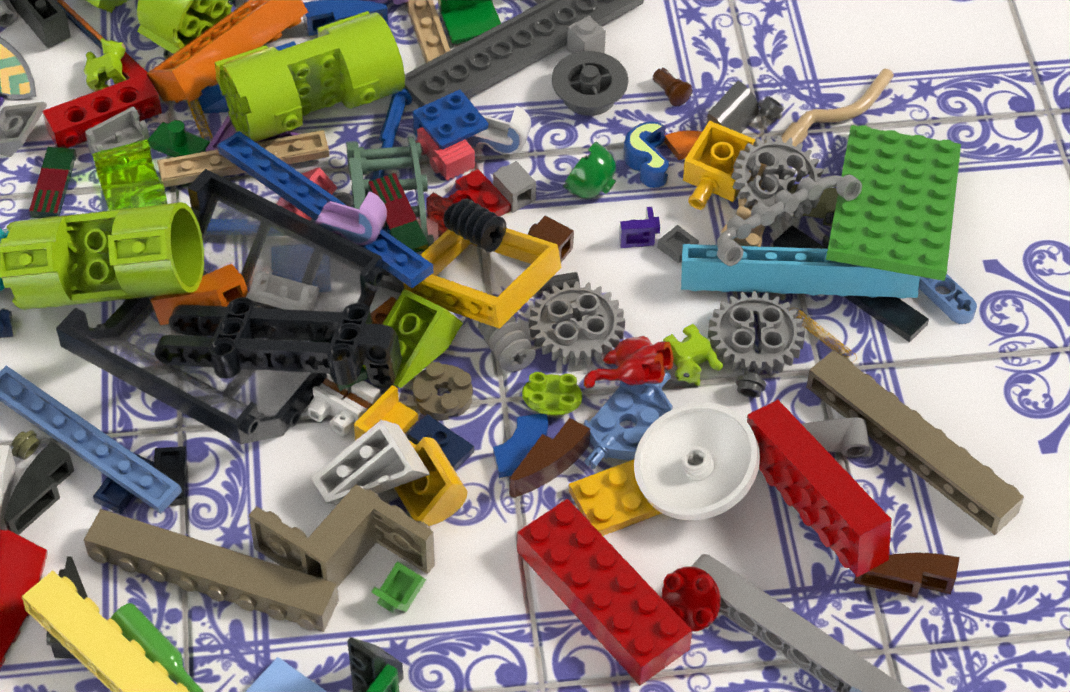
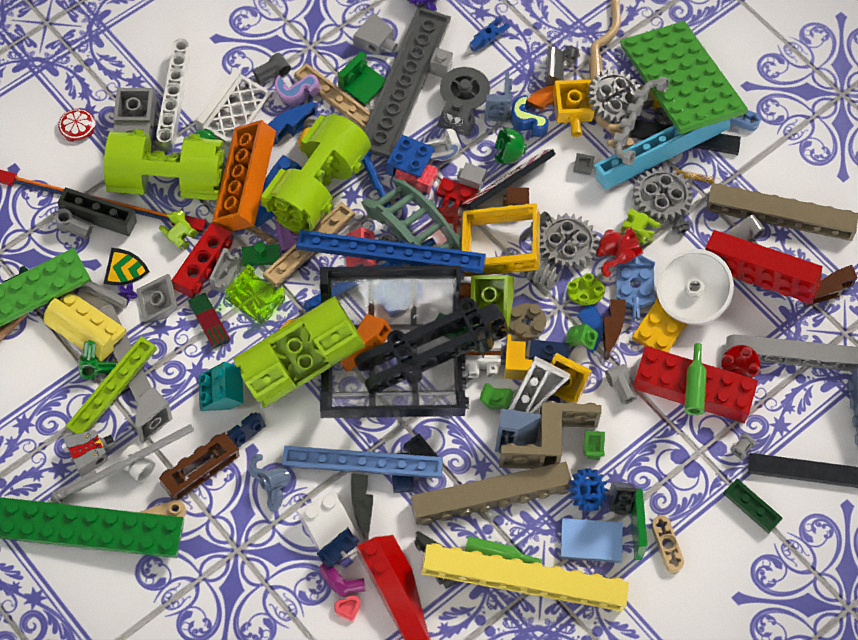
camera: 35 degrees left, 10 degrees up
(25, 444) = (333, 483): olive plate -> none
(282, 293) = (409, 315): light grey hinge -> none
(300, 498) = (517, 428): none -> sand blue slope
(314, 452) = (496, 398): none -> bright green bracket
(333, 626) = (588, 490): none -> blue gear
(354, 224) = (428, 253): lavender animal -> none
(400, 217) = (433, 231): tile -> none
(475, 224) = (483, 216): black piece -> none
(498, 445) = (581, 335): none -> bright green bracket
(502, 528) = (620, 379): none -> light grey piece
(552, 107) = (457, 117): none -> dark grey torso
(568, 209) = (508, 179): none -> black tile
(588, 580) = (695, 384): none -> bright green piece
(616, 118) = (498, 105): none -> sand blue bracket
(639, 232) = (559, 167): dark purple bracket -> none
(675, 89) = (507, 66): reddish brown pin -> none
(678, 38) = (488, 34): none -> blue hinge

